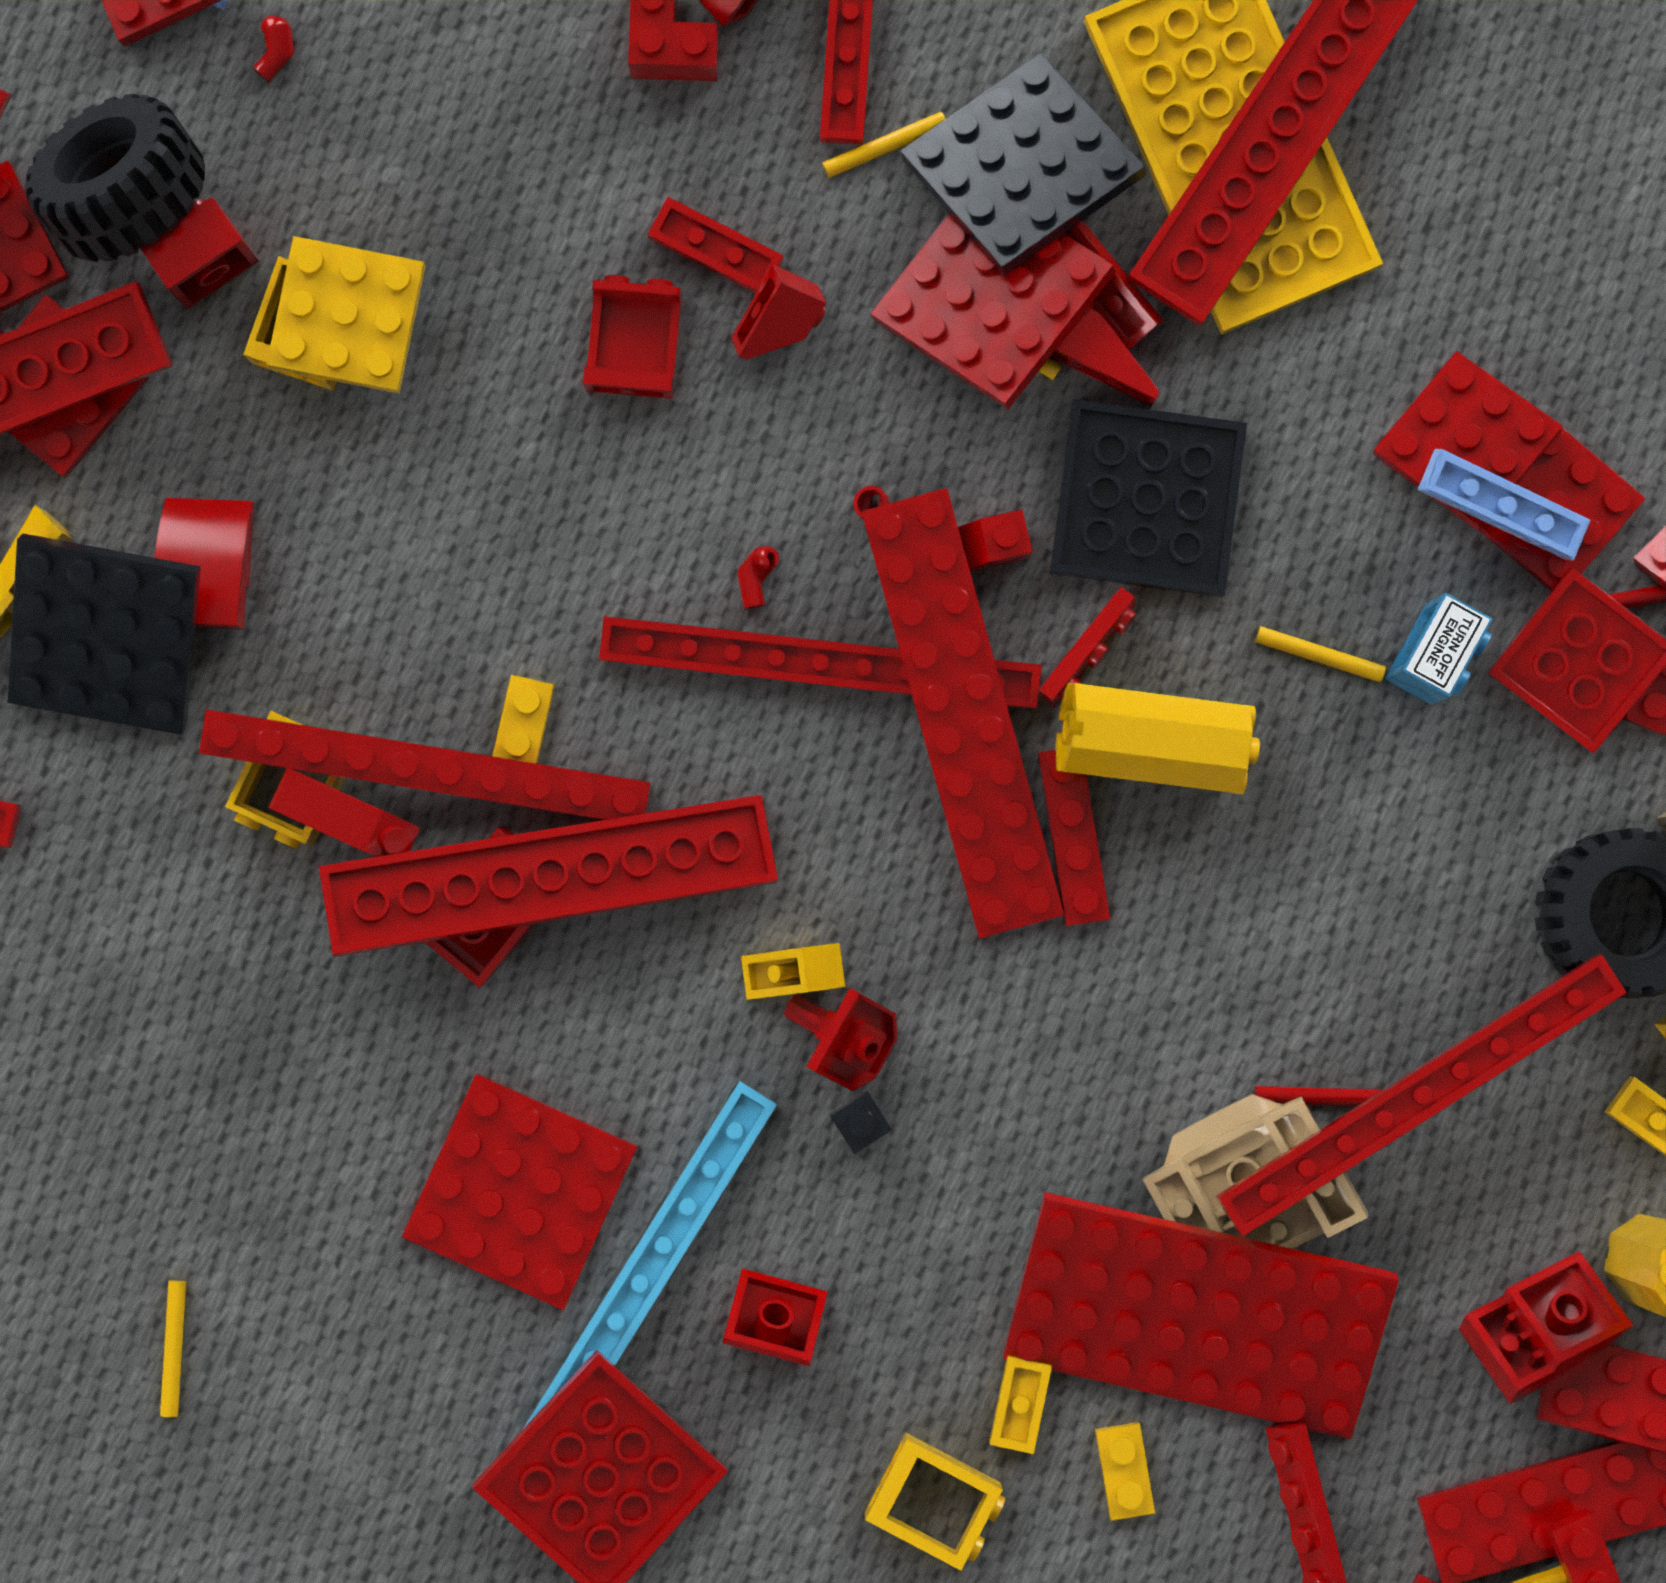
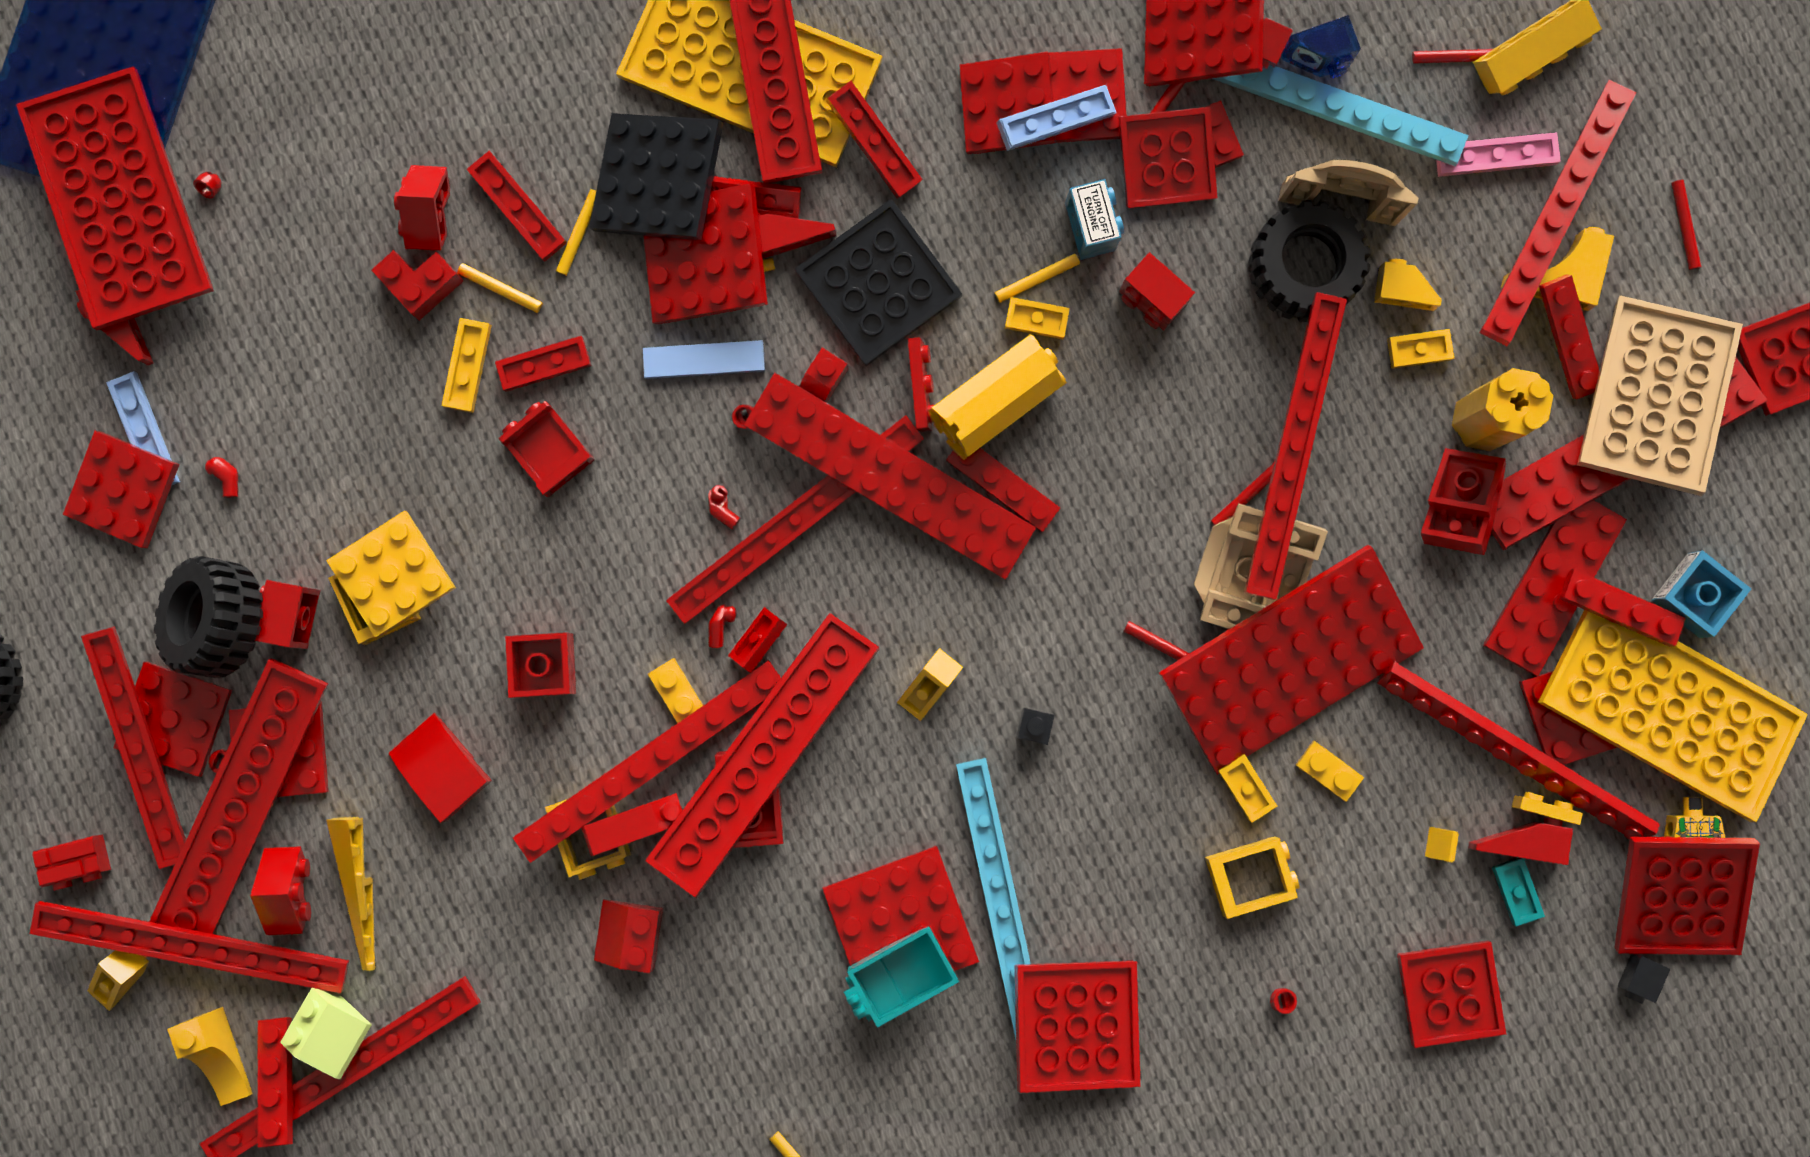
camera: 35 degrees left, 0 degrees up
(102, 633) = (423, 850): black plate -> none
(228, 928) = (628, 935): none -> red slope
(409, 558) = (540, 665): none -> red brick
(463, 1244) = (898, 977): none -> teal piece
(631, 693) = (716, 625): none -> red arm
(634, 172) = (466, 365): none -> yellow plate
(658, 750) = (757, 640): none -> red plate
(747, 124) = (499, 288): none -> yellow bar
(775, 1317) = (1086, 863): red slope -> none
(779, 314) = (607, 366): red slope -> none
(851, 1040) = (991, 689): red piece -> none
(886, 403) = (703, 359): none -> light blue tile
(1073, 1155) = (1155, 641): none -> red bar
(1278, 696) = (1037, 318): none -> yellow plate
(1288, 343) = (873, 139): none -> red plate
(1430, 789) = (1155, 292): none -> red brick

